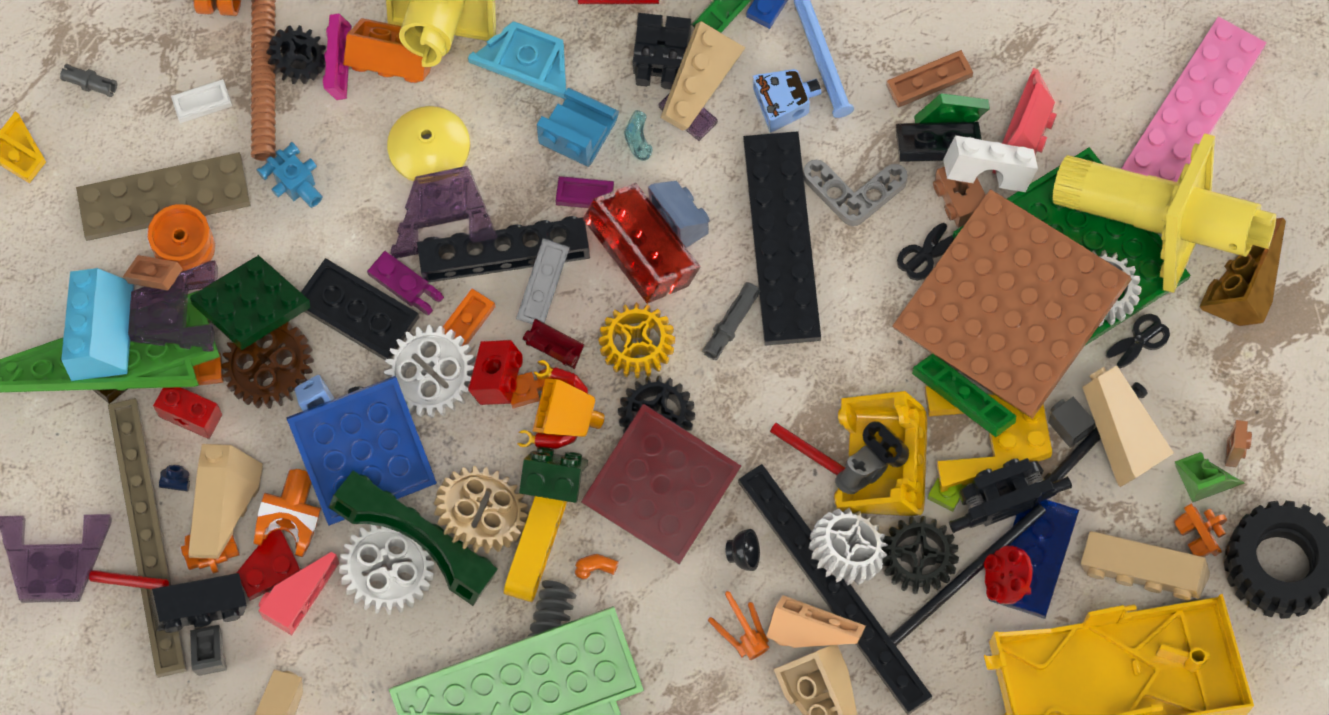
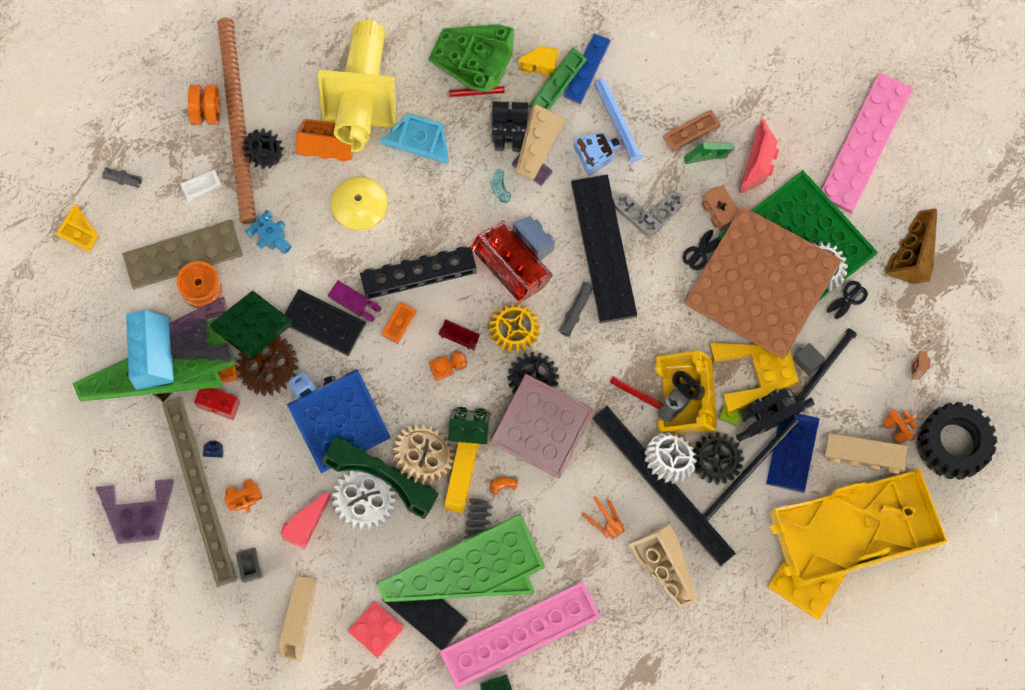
camera: 10 degrees left, 5 degrees up
(127, 580) = (190, 523): red bar -> none
(153, 272) = (182, 309): nougat plate -> none
(197, 603) = (239, 535): black brick -> none
(222, 492) = (248, 456): tan wedge -> none
(268, 565) = (283, 504): red wing -> none
(289, 512) = (294, 466): orange connector -> none
(336, 74) = (291, 159): dark pink plate -> none
(440, 200) = (371, 242): clear purple wing -> none
(448, 352) = (388, 348): white gear -> none
(495, 372) = (418, 350): red brick -> none
(542, 281) = (447, 293): tile -> none
(563, 410) = (471, 381): light orange torso -> none
(577, 127) = (459, 183): dark azure piece -> none
(580, 191) = (467, 228): magenta tile -> none
(744, 550) = (601, 465): black piece -> none
(807, 626) = (647, 513): light nougat slope -> none
(931, 140) = (703, 174): black tile -> none
(964, 395) = (737, 347): green plate -> none
(971, 156) = (726, 185): white arch -> none
(1008, 575) = (783, 463): red plate -> none
(1124, 426) = (845, 360): tan slope -> none
(1181, 210) = (869, 211): light yellow piece -> none
(1203, 477) = (898, 388): bright green slope -> none

